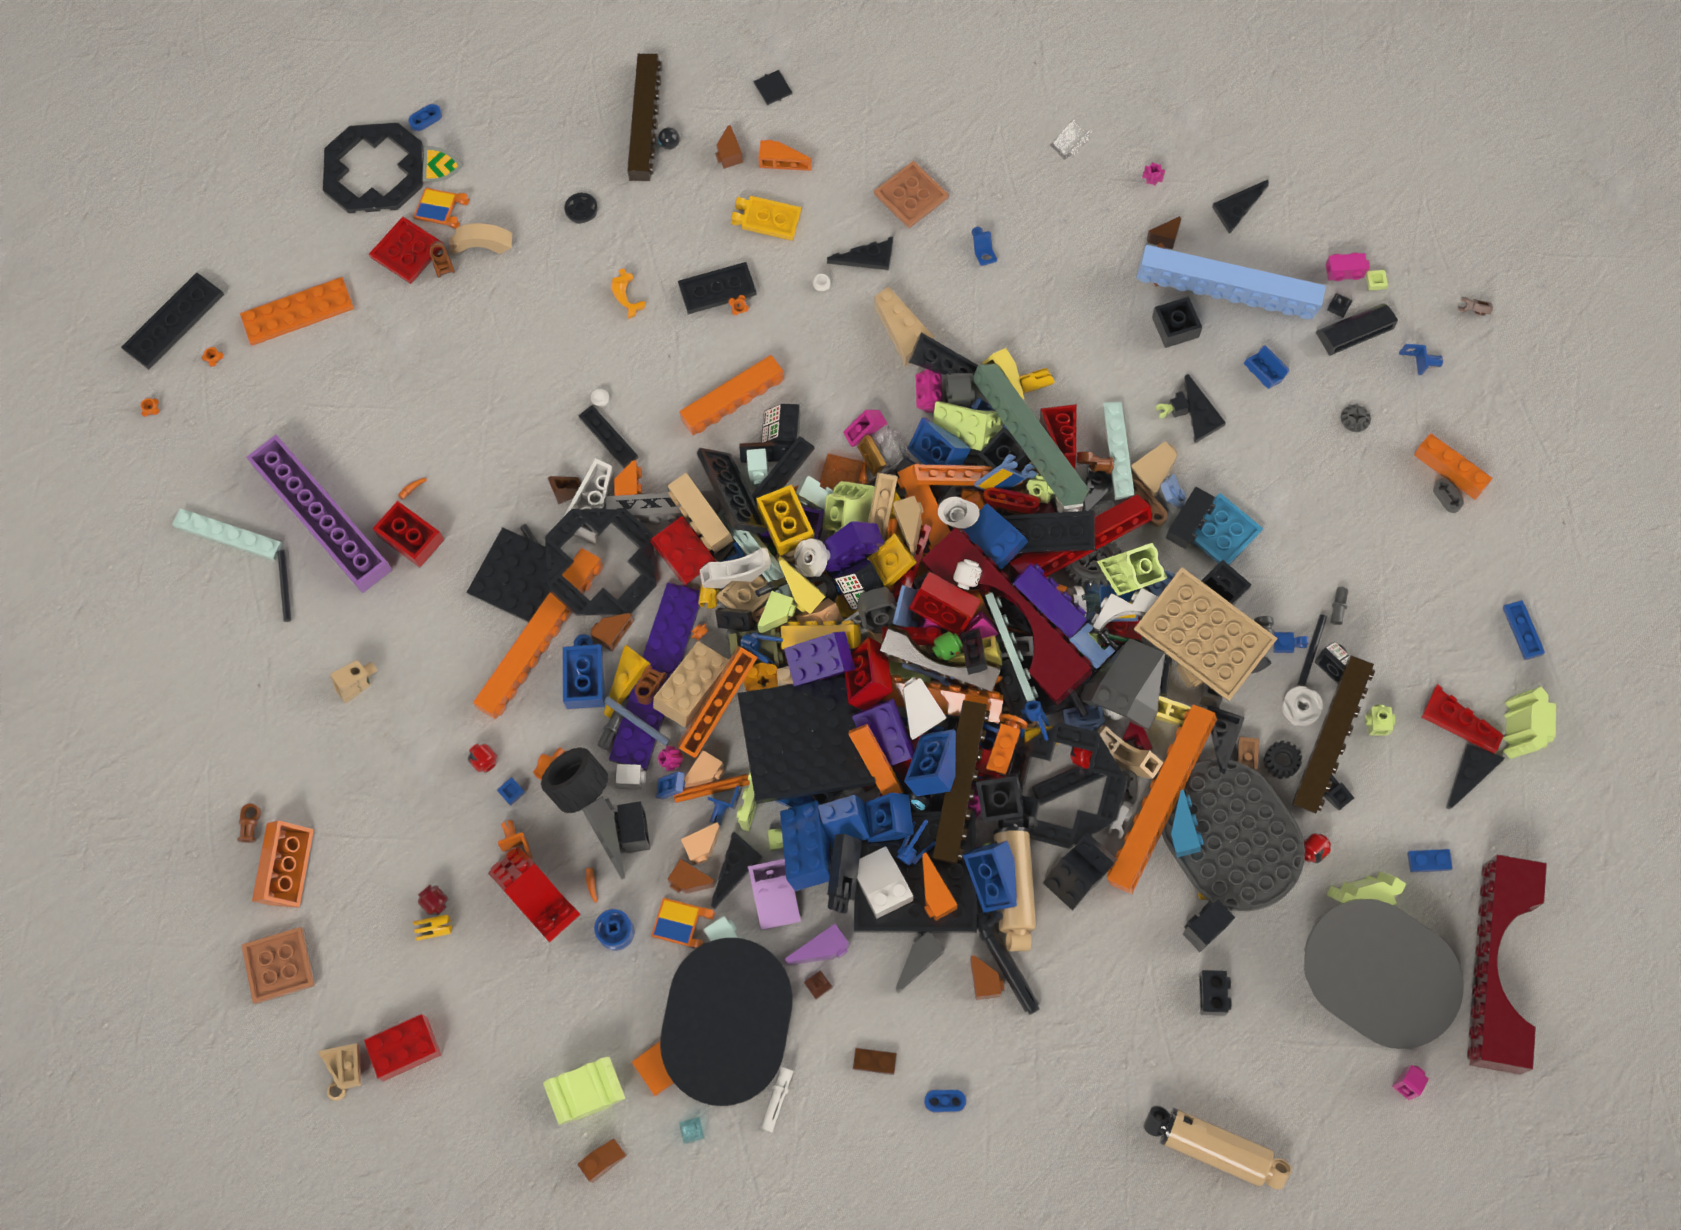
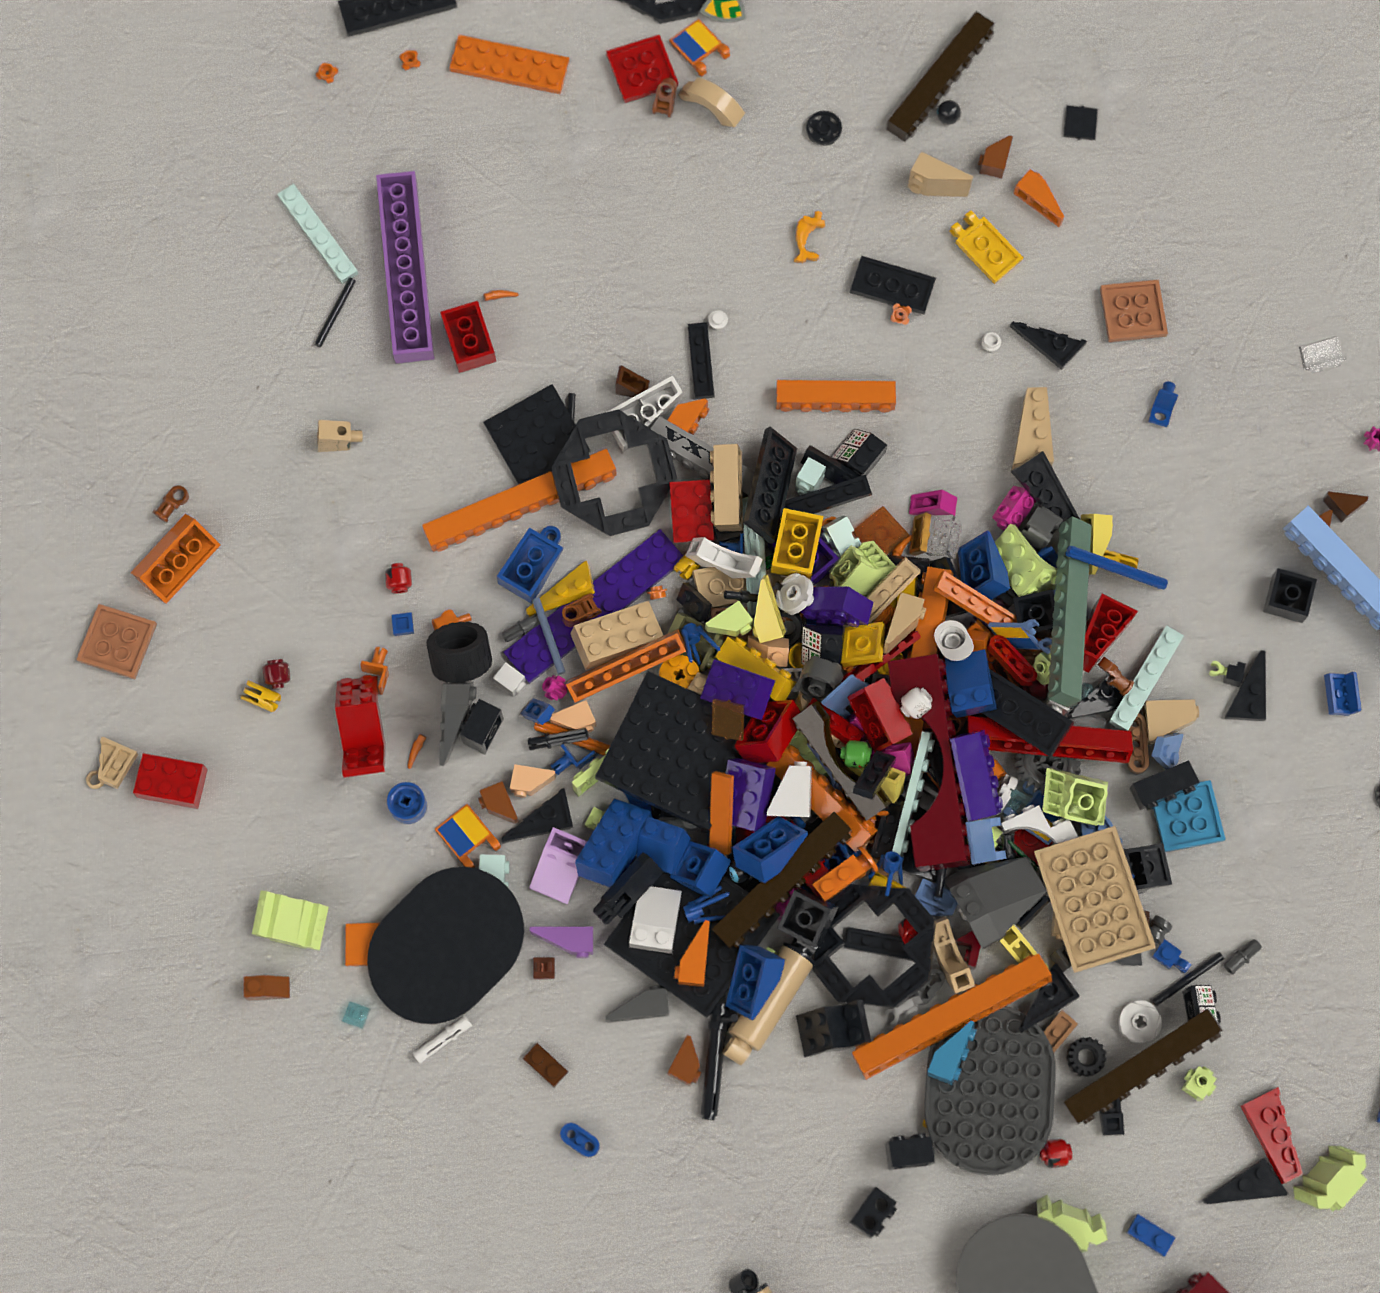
camera: 30 degrees right, 5 degrees up
(611, 630) = (582, 540): dark orange slope -> none
(696, 188) = (937, 178): none -> tan slope
(701, 796) = (549, 740): none -> black axle
(829, 685) = (728, 719): none -> clear orange piece
(1035, 382) = (1116, 567): none -> blue axle

